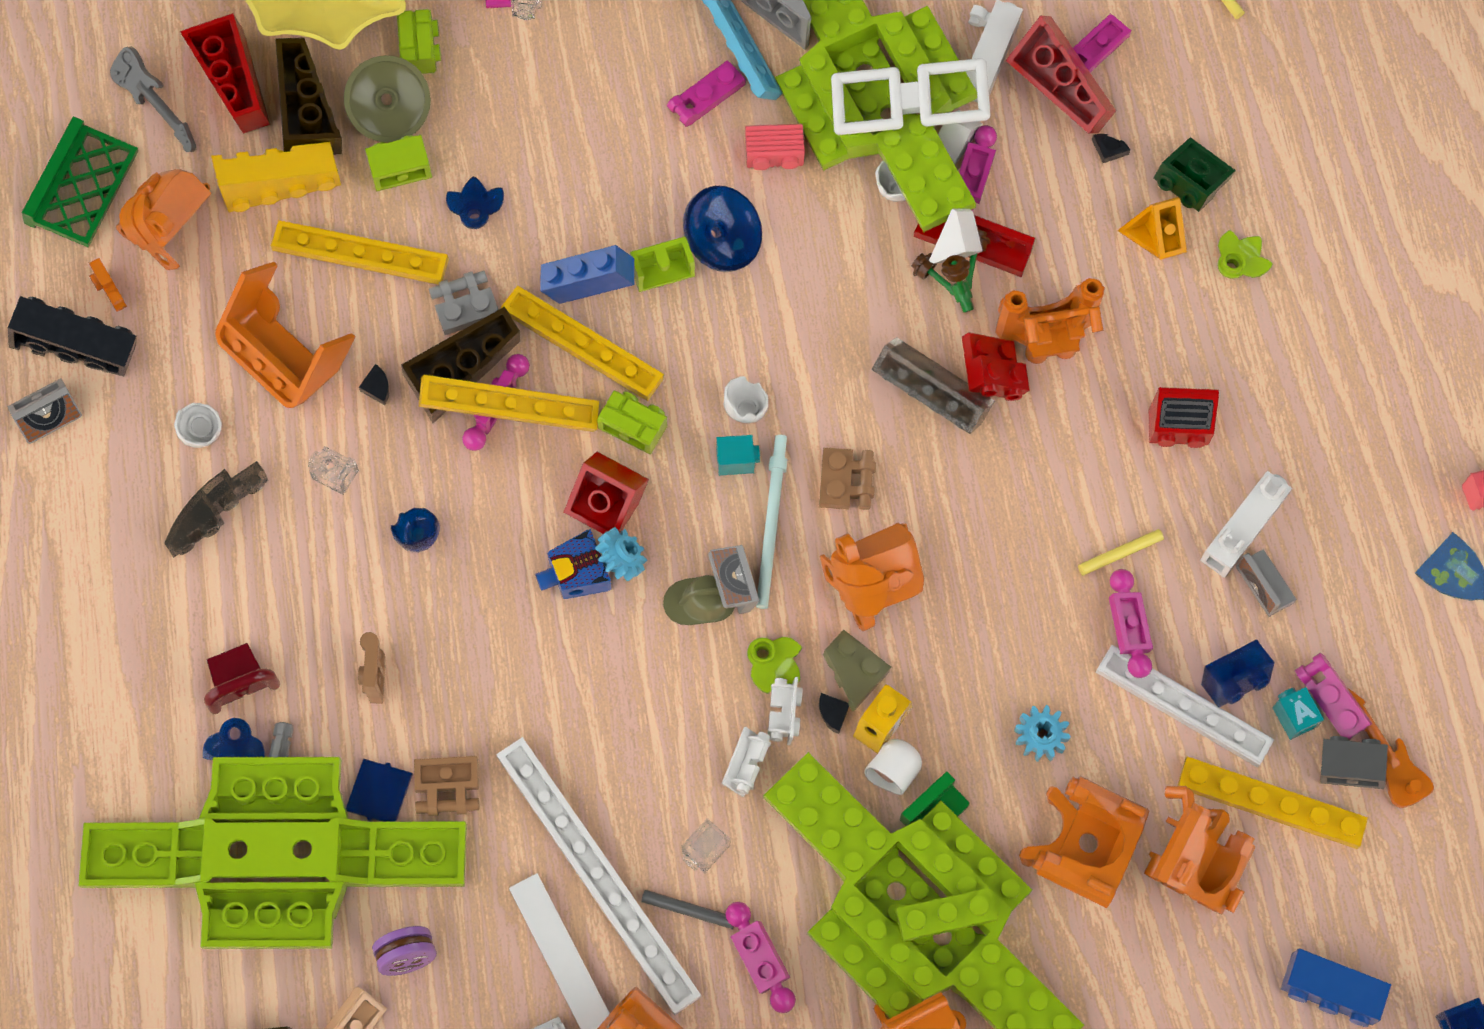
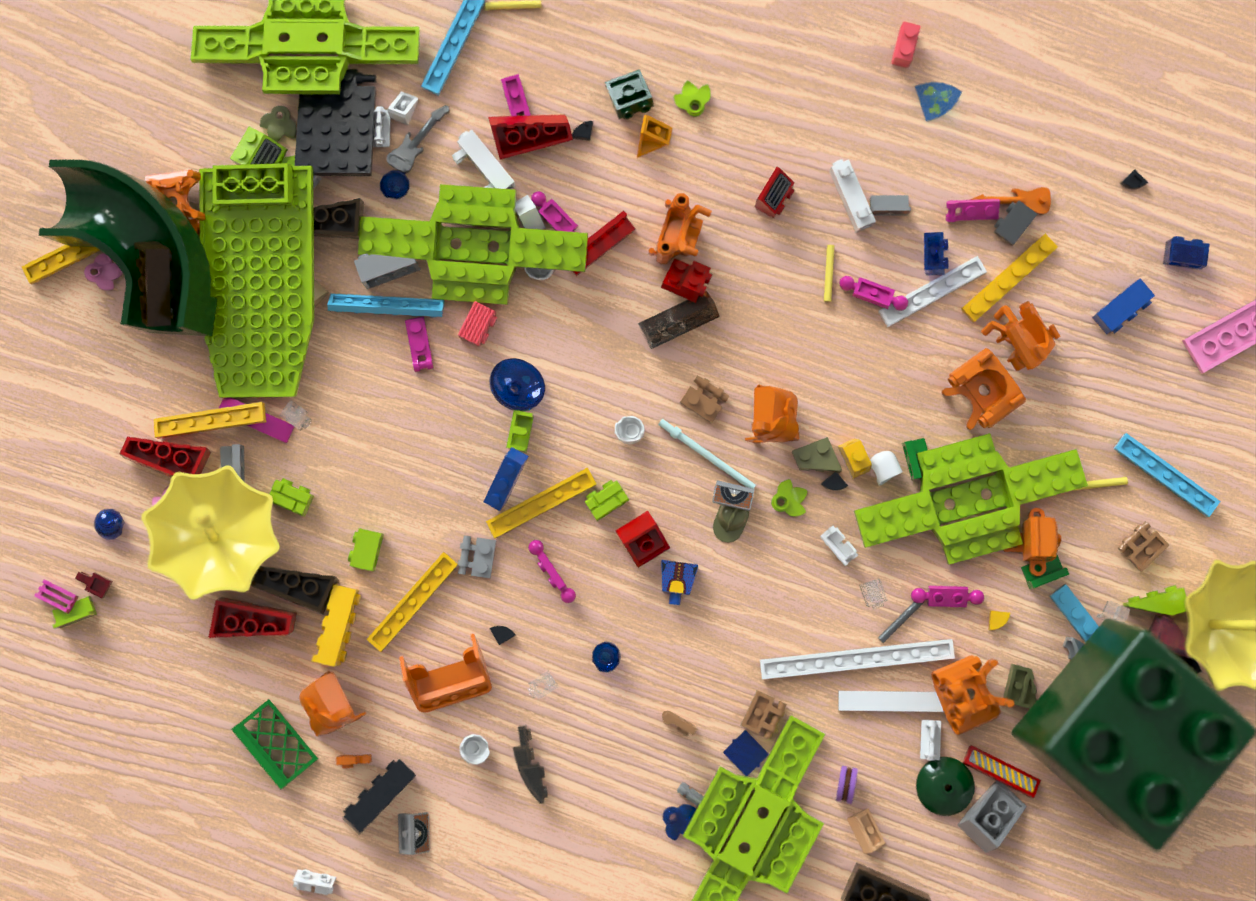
camera: 60 degrees left, 15 degrees up
(132, 75) = (214, 679): dark grey piece -> none
(235, 675) = (635, 799): dark red piece -> none
(392, 77) = (333, 540): olive dish -> none
(464, 355) = (519, 588): dark brown wedge -> none
(475, 200) = (414, 515): clear blue plate -> none
(508, 403) = (562, 566): yellow plate -> none
(621, 554) = (684, 550): medium azure gear -> none
(736, 455) = (658, 452): teal brick -> none
(784, 723) = (828, 512): white hinge -> none
(910, 97) = (500, 231): white bar -> none
(946, 914) = (984, 487): lime plate -> none
(955, 269) = (620, 267): plant -> none
(957, 237) = (602, 254): white slope -> none
(1035, 723) = (910, 370): medium azure gear -> none
(1297, 712) = (970, 234): teal brick -> none

